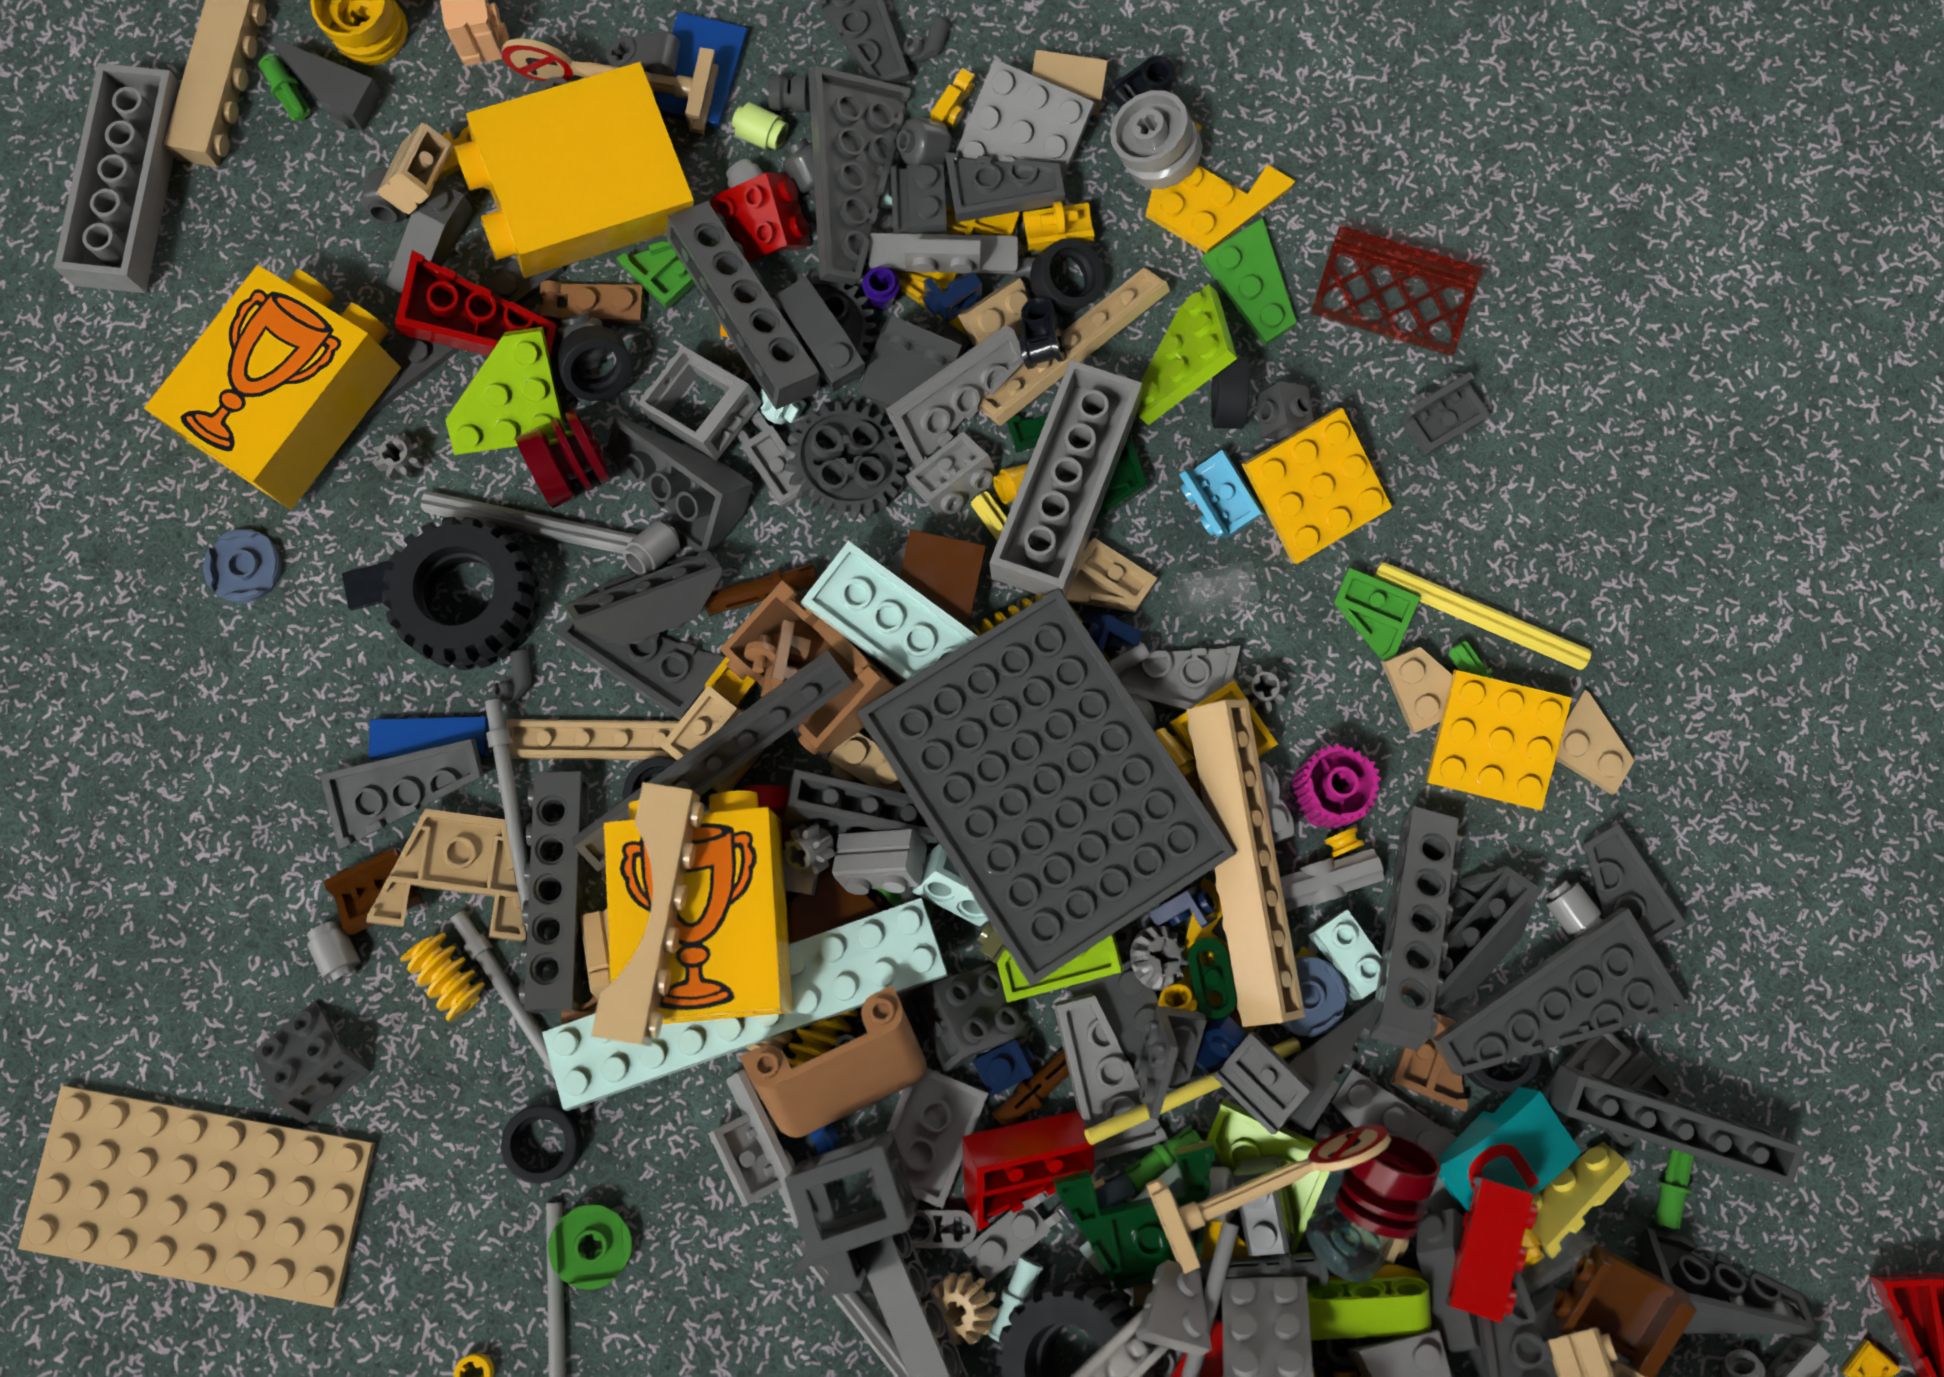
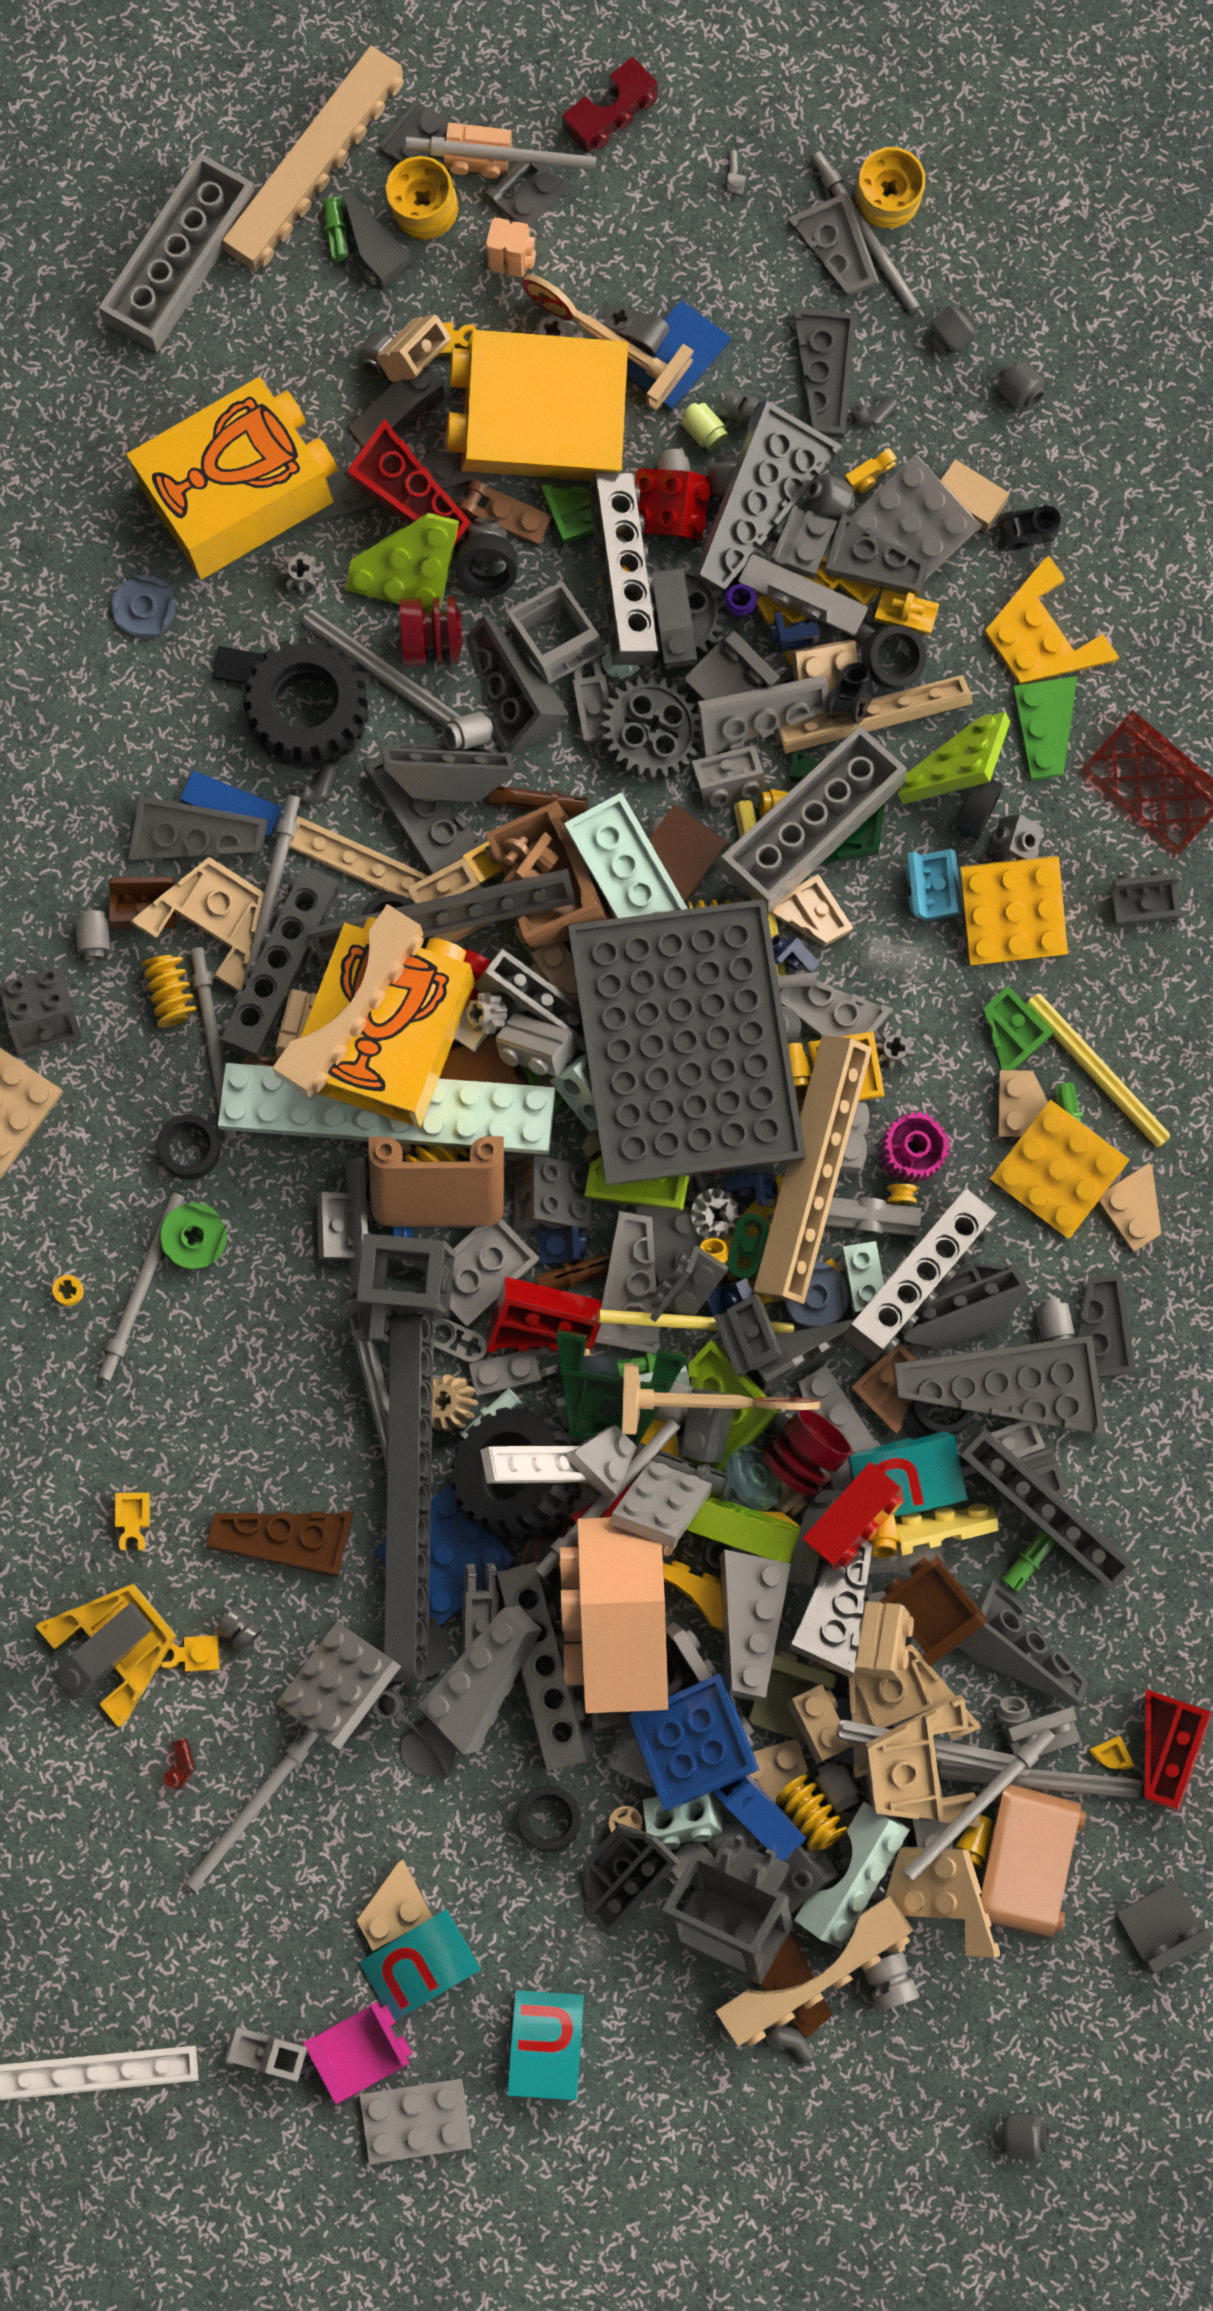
camera: 25 degrees right, 0 degrees up
(1156, 139) = (1017, 576): light grey wheel -> none

